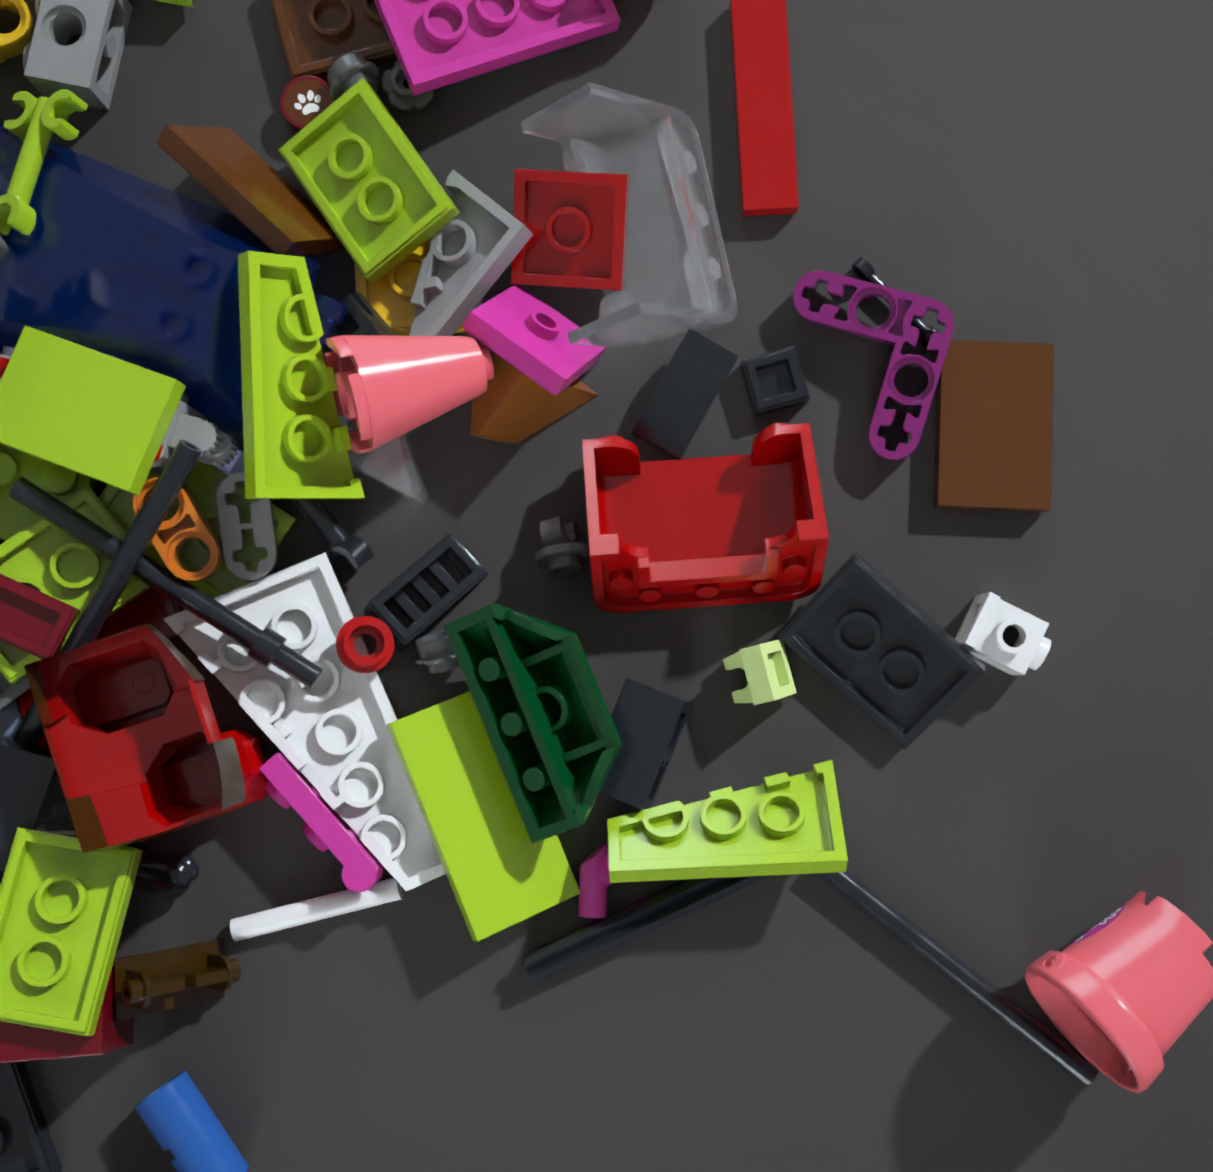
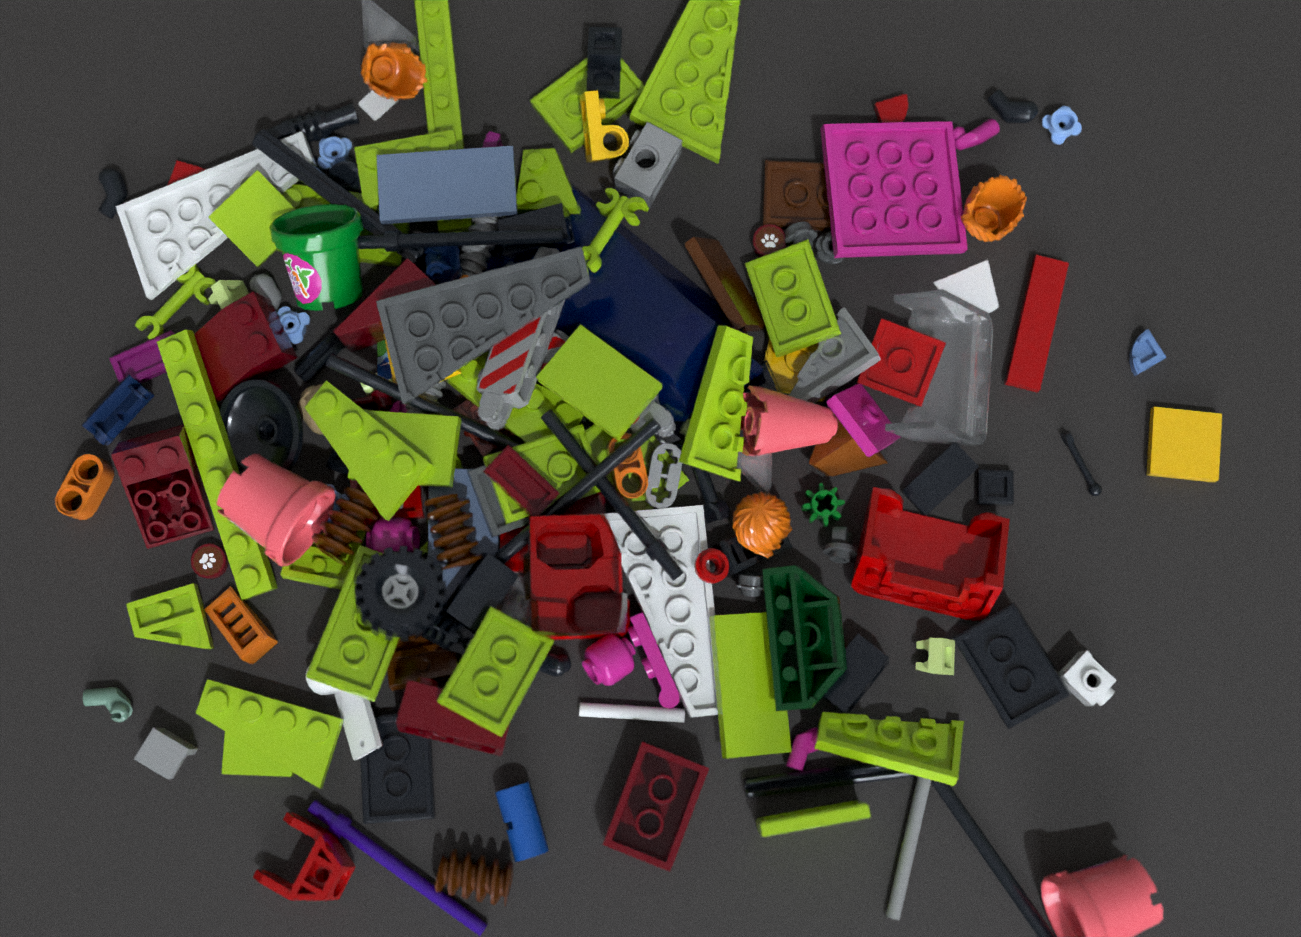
camera: 15 degrees right, 5 degrees down
(171, 978) = (543, 724): dark brown hinge -> none
(252, 841) = (609, 660): none -> dark pink head
(389, 1051) = (656, 806): none -> dark red brick
(424, 552) = (761, 523): none -> orange hair
(507, 477) = (832, 506): none -> green gear
(637, 993) = (812, 817): none -> lime tile
(653, 75) = (973, 286): none -> white sticker
(805, 987) = (908, 848): none -> light grey bar
(895, 331) = (1076, 481): magenta beam -> none
(944, 99) = (1145, 353): none -> medium blue tile
(994, 427) = (1118, 554): reddish brown tile -> none
(1045, 222) = (1184, 444): none -> yellow tile

